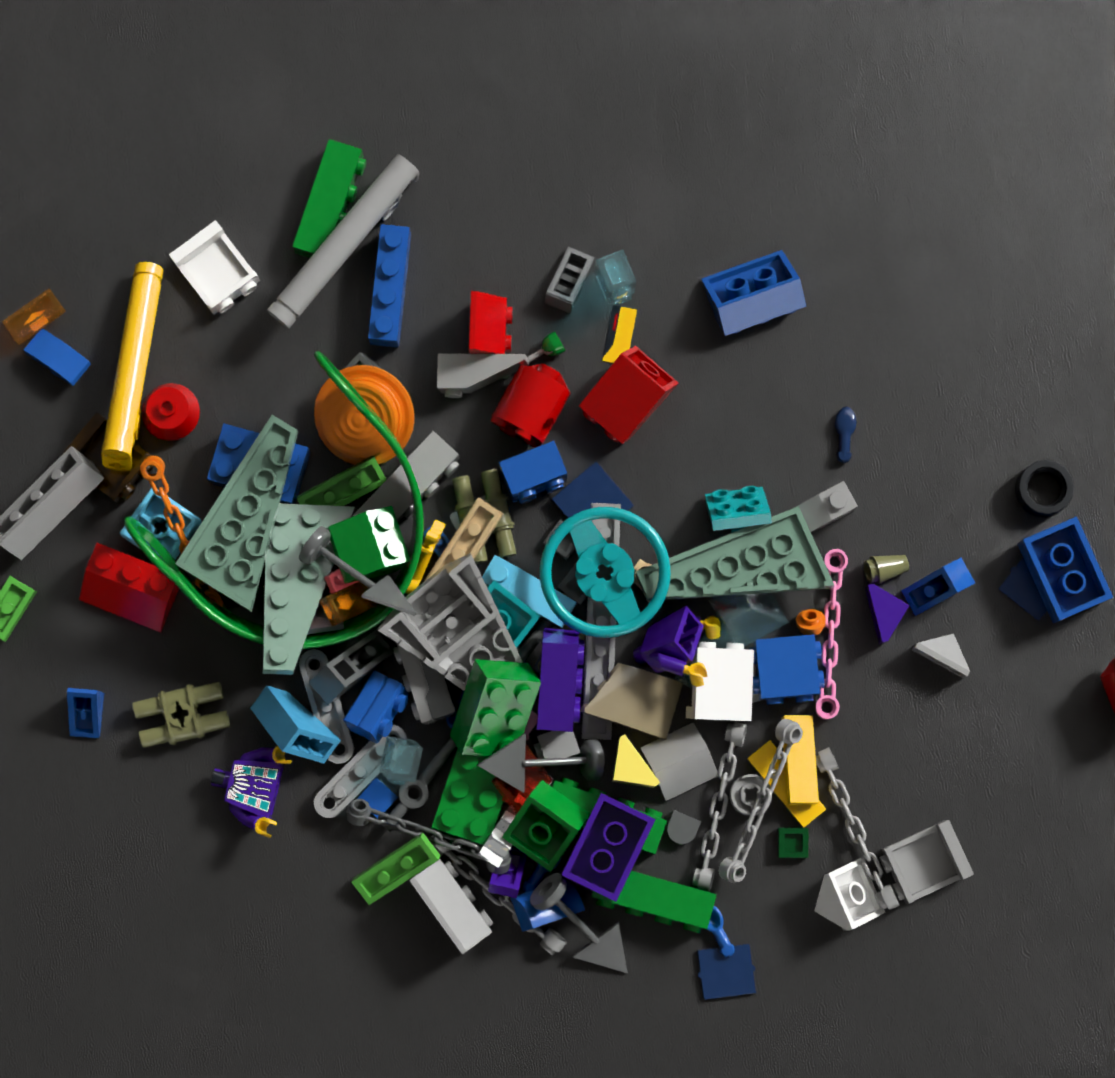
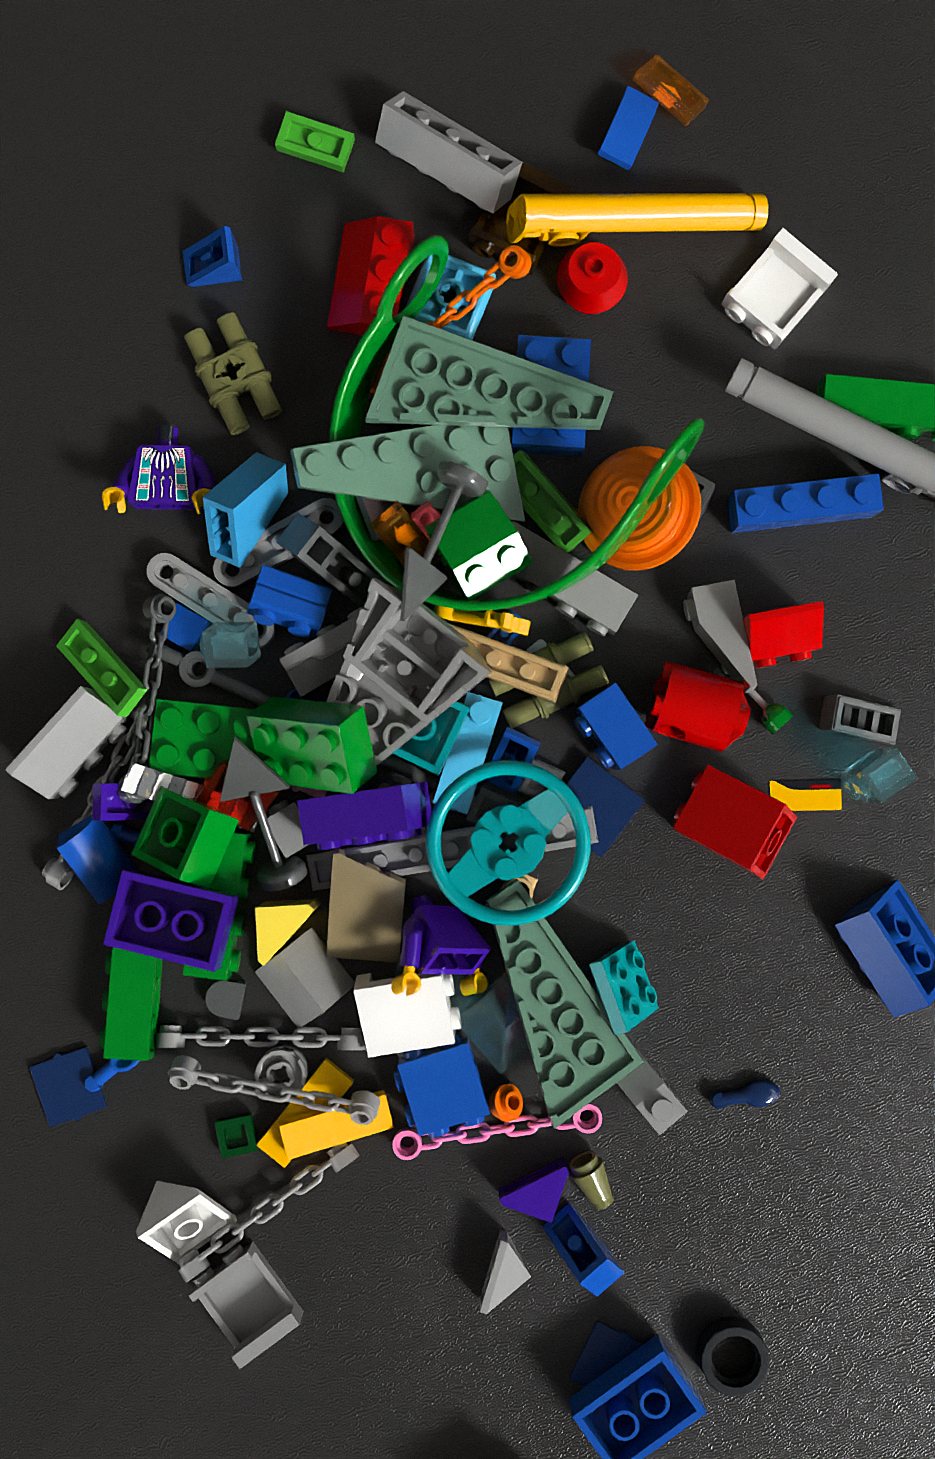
camera: 75 degrees right, 5 degrees up
(531, 553) = (513, 747): none -> blue slope
(602, 950) = (60, 939): dark grey piece -> none

